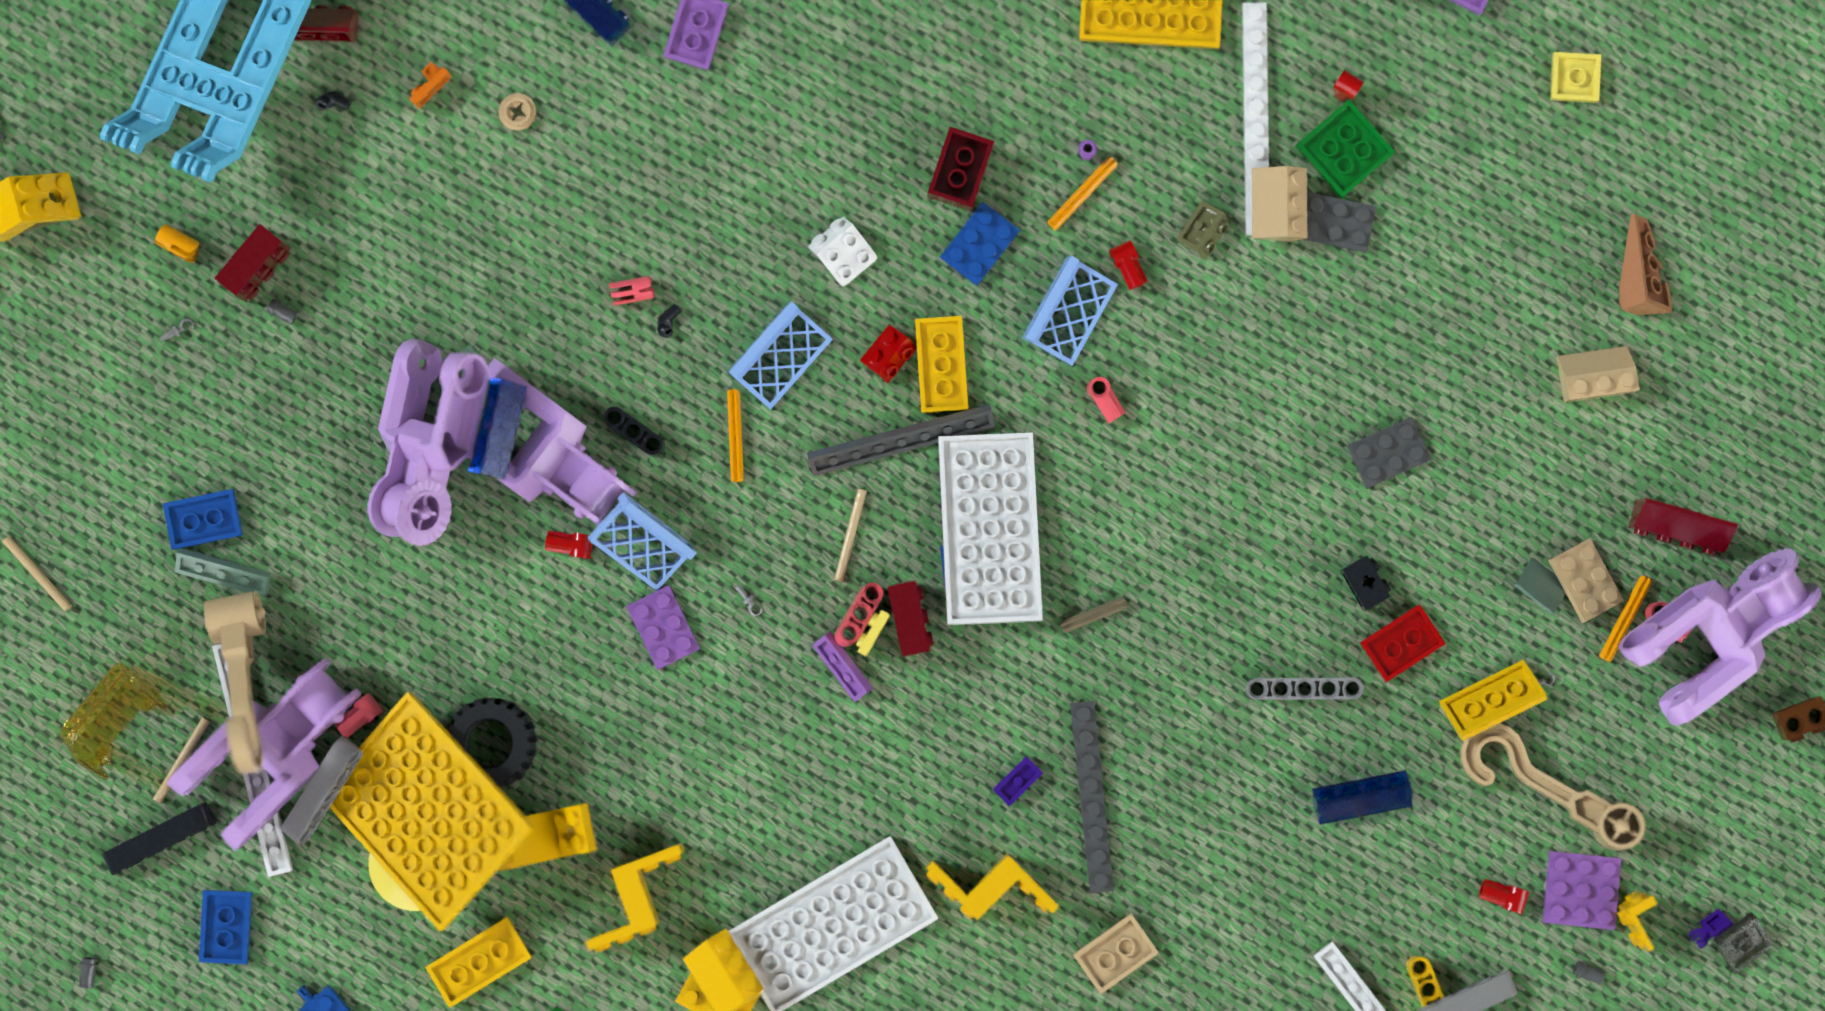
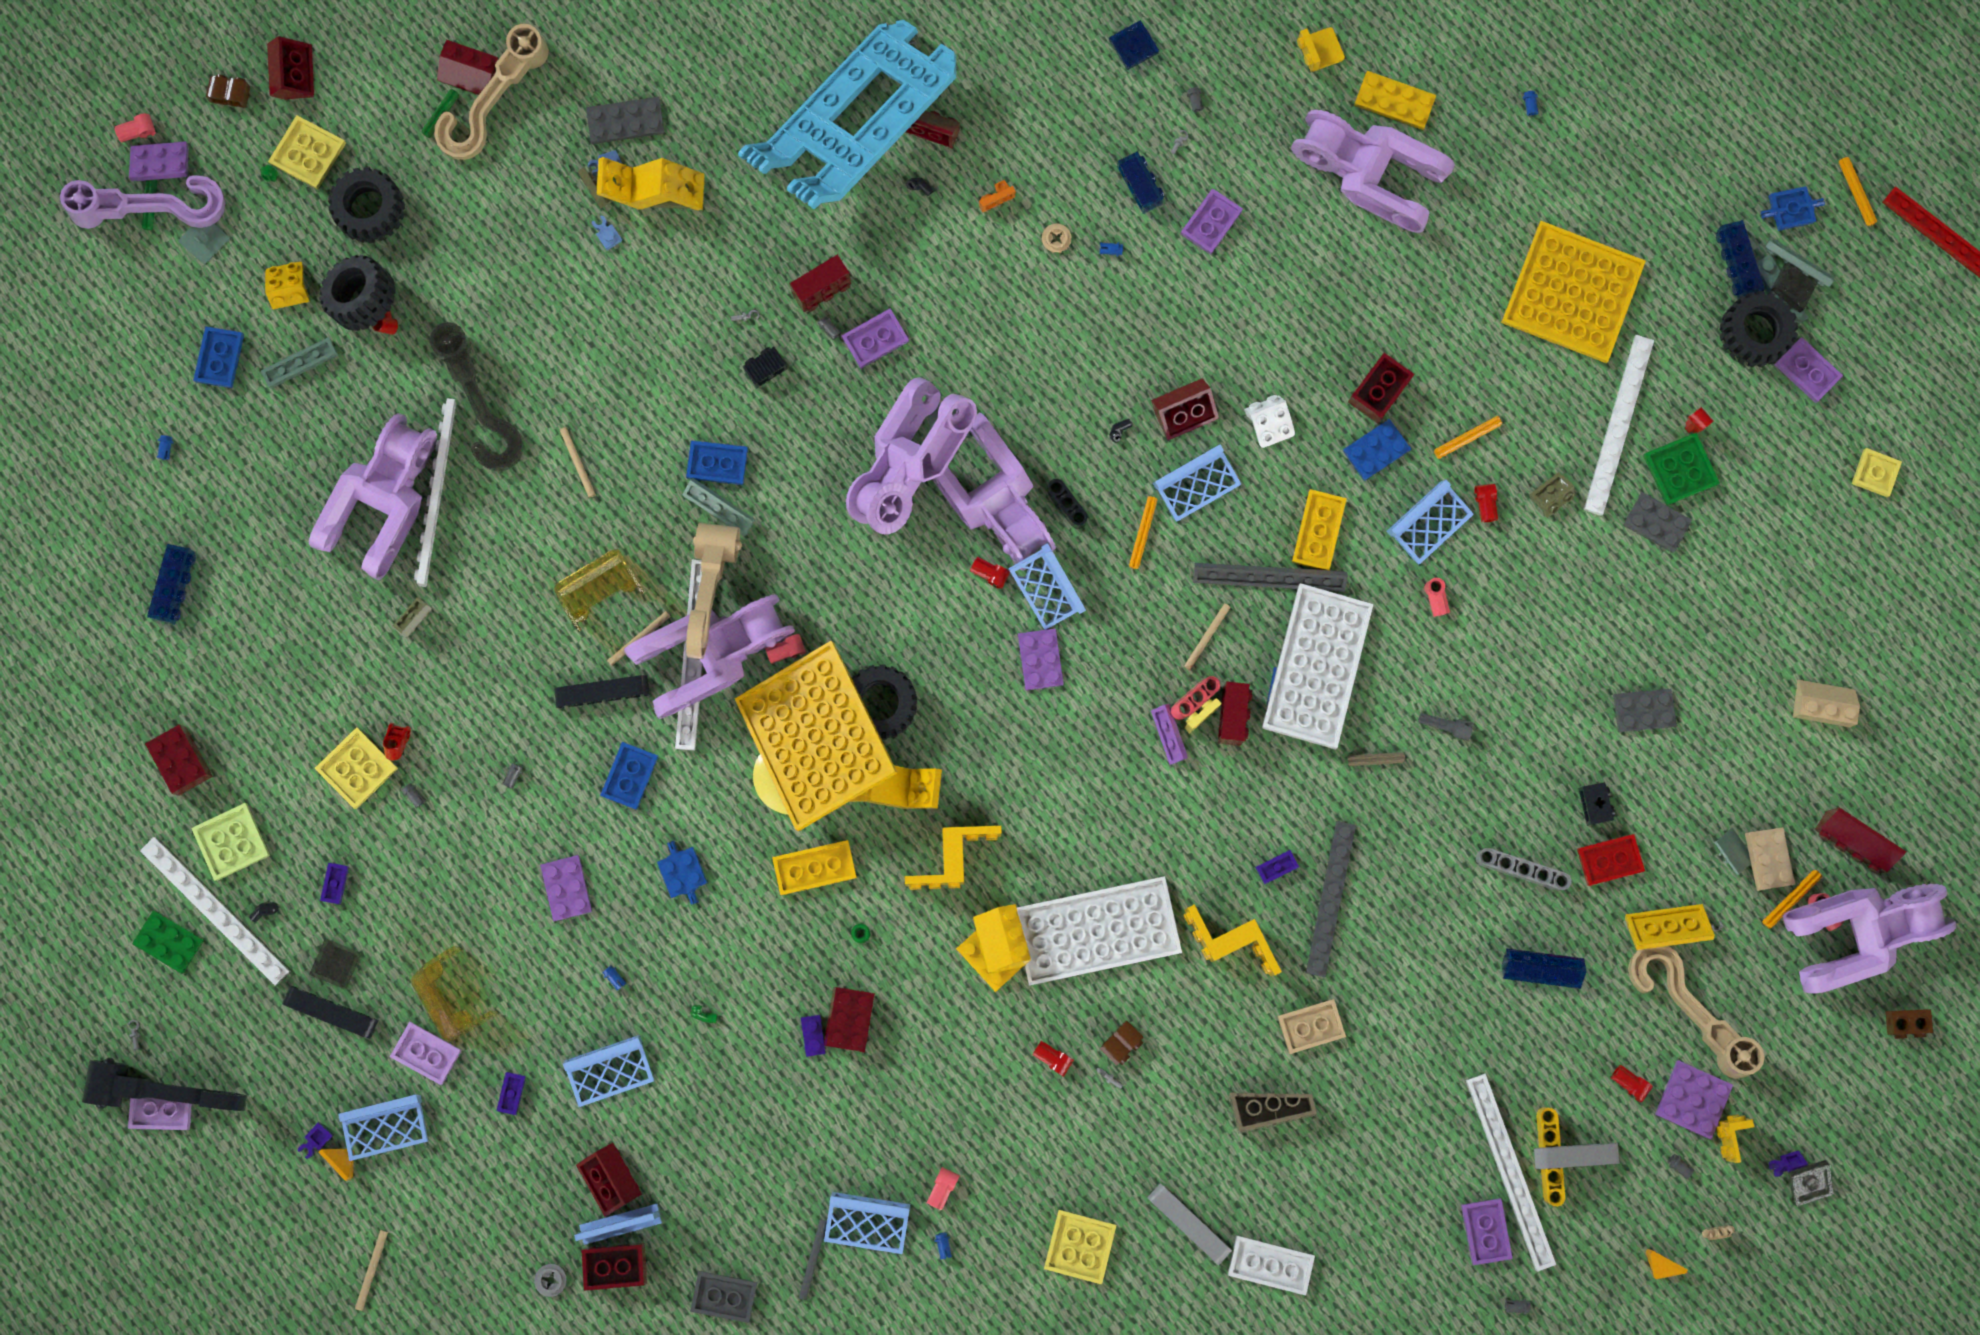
camera: 15 degrees right, 5 degrees down
(177, 243) = (768, 251): light orange arm -> none
(220, 385) = (764, 366): none -> black brick
(321, 790) = (739, 695): light grey beam -> none
(341, 306) = (875, 338): none -> medium lavender plate
(498, 428) = (968, 463): clear blue brick -> none
(588, 103) = (1113, 249): none -> blue pin
(639, 290) = (1106, 394): coral arm -> none
(737, 270) = (1185, 409): none -> dark red slope
(747, 599) = (1112, 659): light grey hand -> none
(888, 353) = (1281, 509): red bracket -> none
(1090, 145) = (1482, 405): medium lavender pin -> none
(1180, 546) = (1460, 729): none -> dark grey piece
(1279, 203) = (1619, 492): tan slope -> none
(1640, 282) = (1881, 641): nougat wedge -> none

